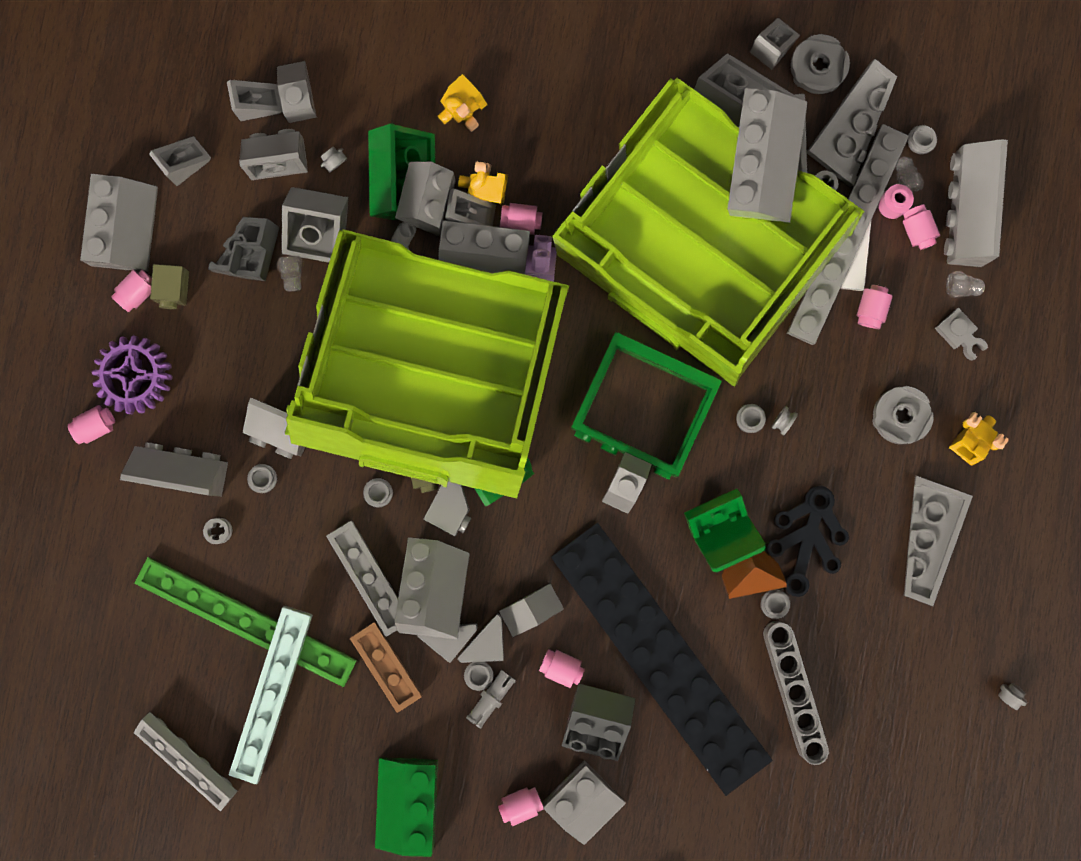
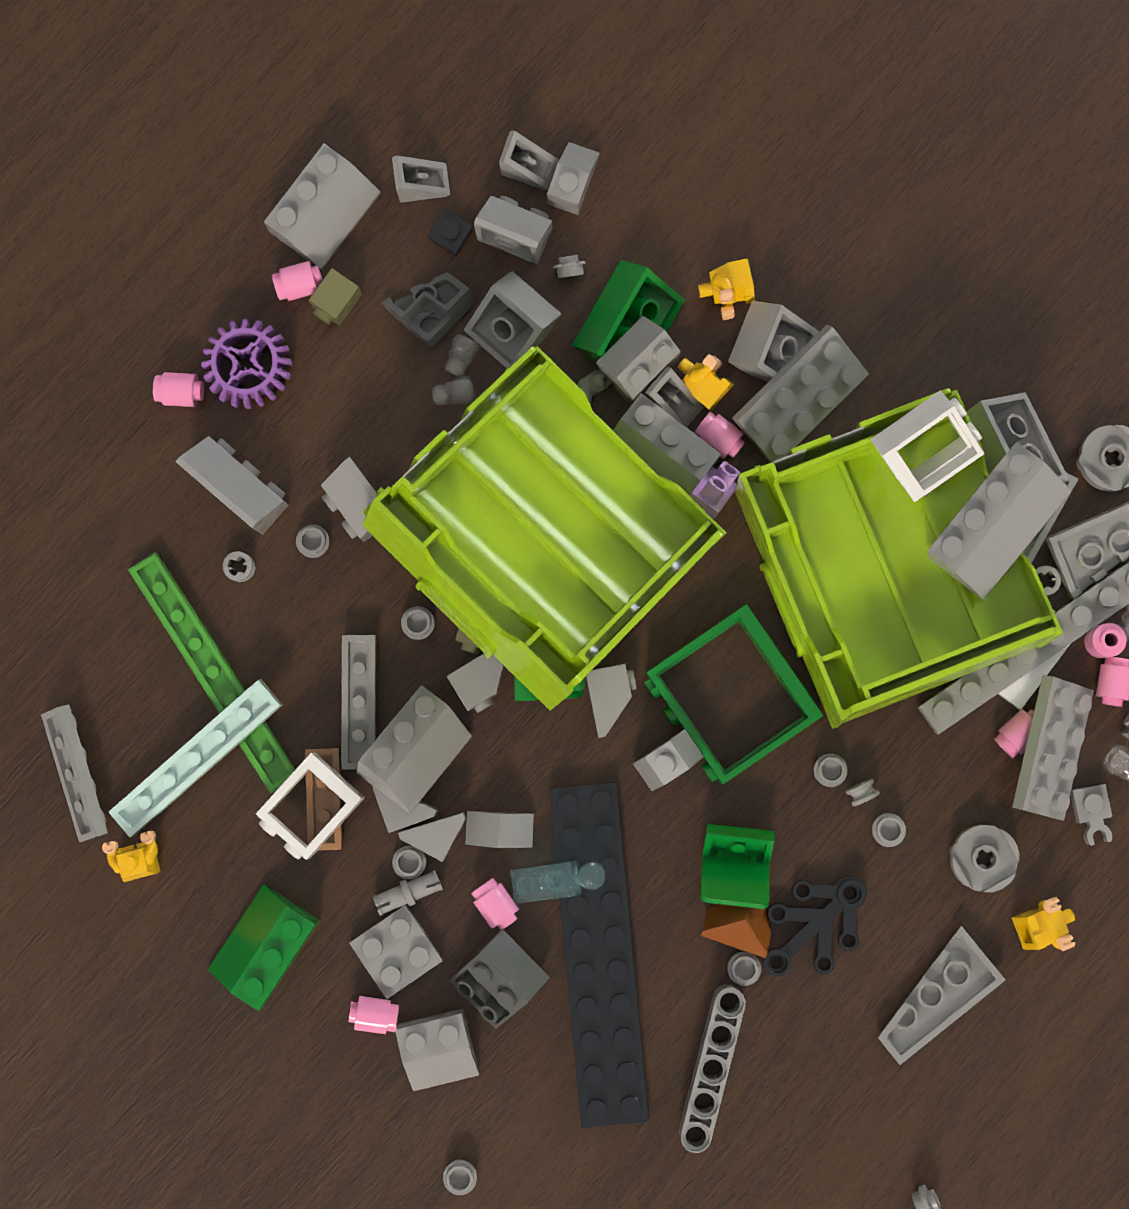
camera: 35 degrees right, 0 degrees up
(228, 186) = (450, 232): none -> black plate
(268, 801) = (133, 861): none -> yellow piece
(302, 303) = (454, 392): none -> clear piece
(382, 648) = (334, 781): none -> white window
(509, 748) = (396, 951): none -> light grey plate
(520, 127) = (769, 340): none -> light grey slope
(553, 460) = (609, 694): none -> light grey slope
(562, 152) = (801, 395): none -> light grey plate
(596, 624) = (554, 881): none -> clear light blue plate
(699, 139) = (942, 464): none -> white window
(774, 43) = (1079, 409): light grey slope -> none
(820, 436) = (888, 829): none -> light grey plate
(905, 303) = (1053, 748): none -> light grey plate

